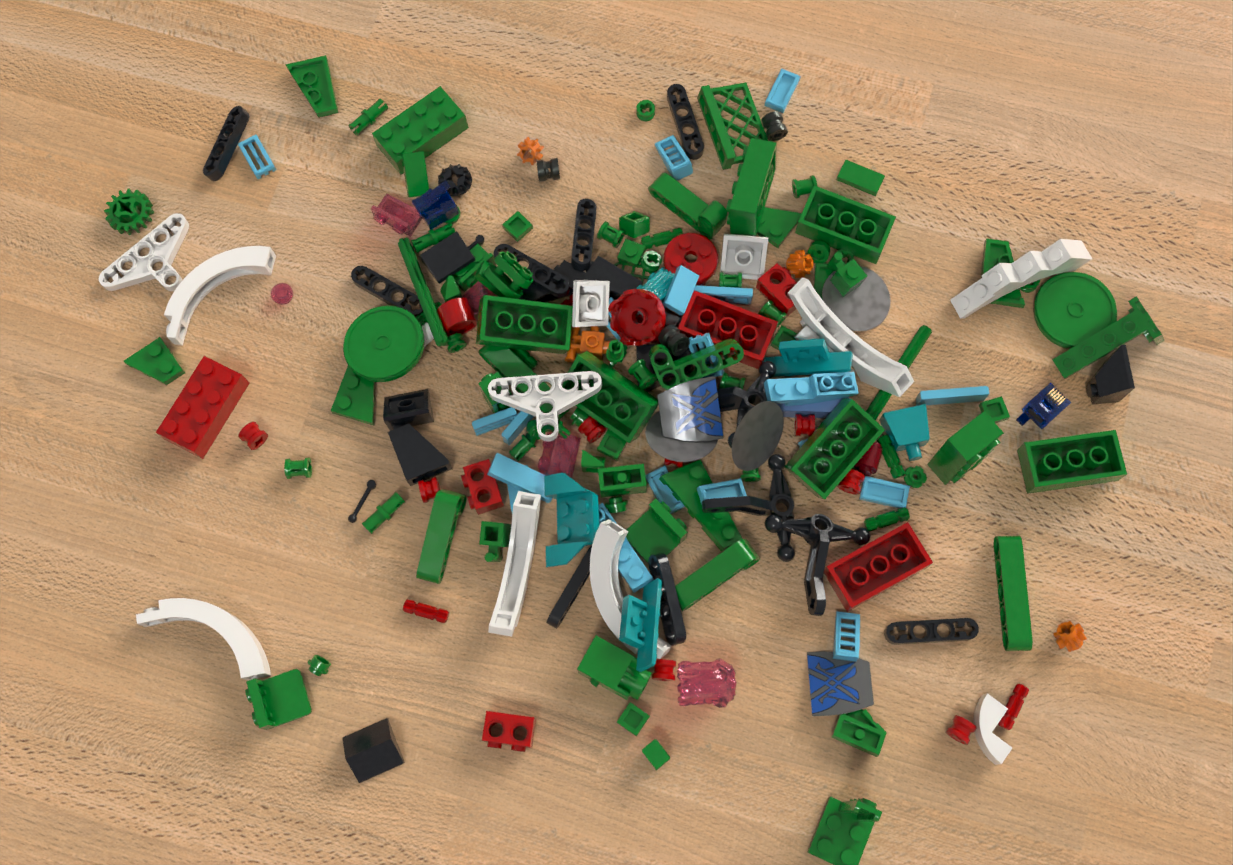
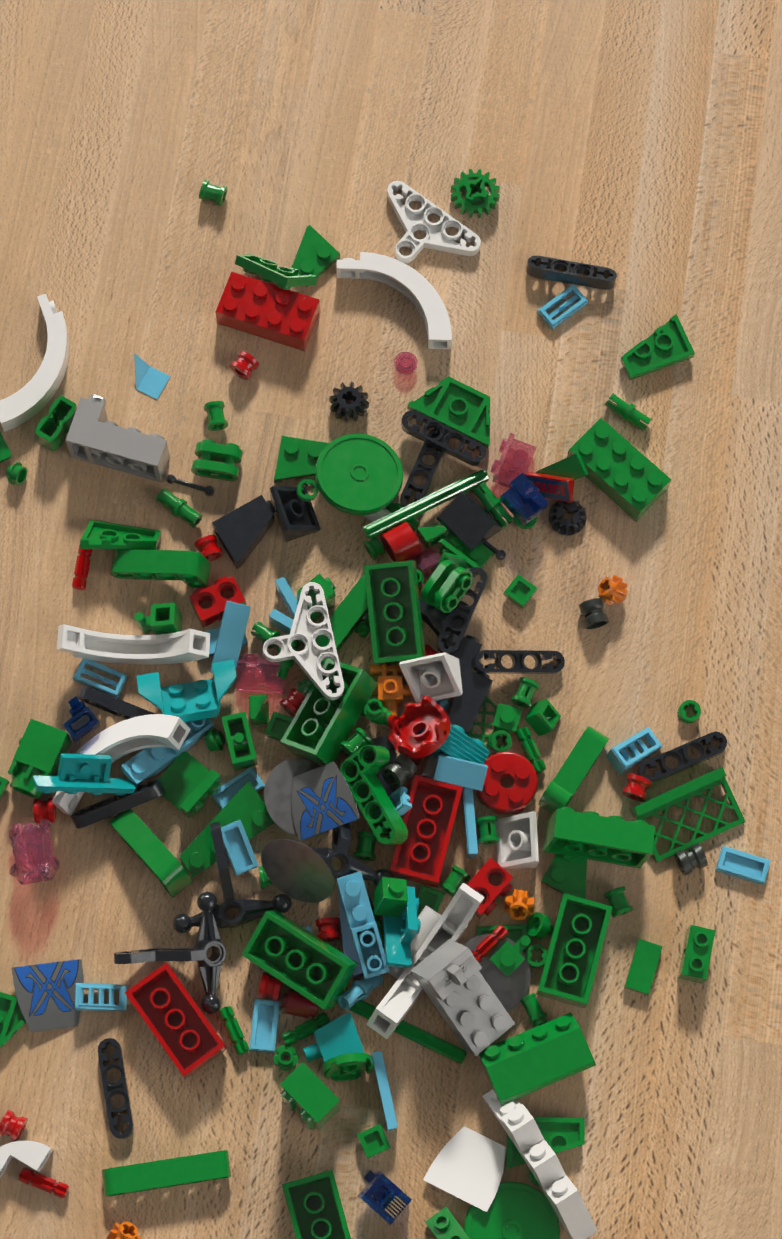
camera: 75 degrees right, 0 degrees up
(67, 444) = (213, 192): none -> green bush
(171, 385) = (269, 272): none -> green wing
(246, 528) = (149, 379): none -> medium azure sticker
(275, 617) = (53, 427): none -> green brick
(311, 563) = (111, 446): none -> light grey hinge
(313, 352) = (357, 405): none -> black gear
(336, 255) = (457, 408): none -> green wing
(338, 461) = (227, 453): none -> green brick
(359, 266) = (441, 441): none -> black beam
(390, 398) = (307, 482): none -> green bush
(403, 572) = (118, 536): none -> green wing
(429, 178) = (552, 486): none -> slope
(536, 626) = (119, 686): none -> medium azure tile
(584, 624) = (82, 720): none -> clear blue piece
(707, 158) = (636, 787): none -> red wheel
(786, 362) = (390, 897): none -> green brick
(833, 293) = (490, 943): none -> red axle
(856, 133) = (696, 954): none -> green brick
(865, 403) = (358, 991): none -> medium azure pin
(880, 314) = (463, 996): none -> light grey hinge
(891, 266) = (534, 1010): none -> green pin
(932, 420) = (348, 1066): none -> green tile
(937, 266) = (536, 1058): none -> green slope
(1021, 337) = (469, 1168): none -> white sticker

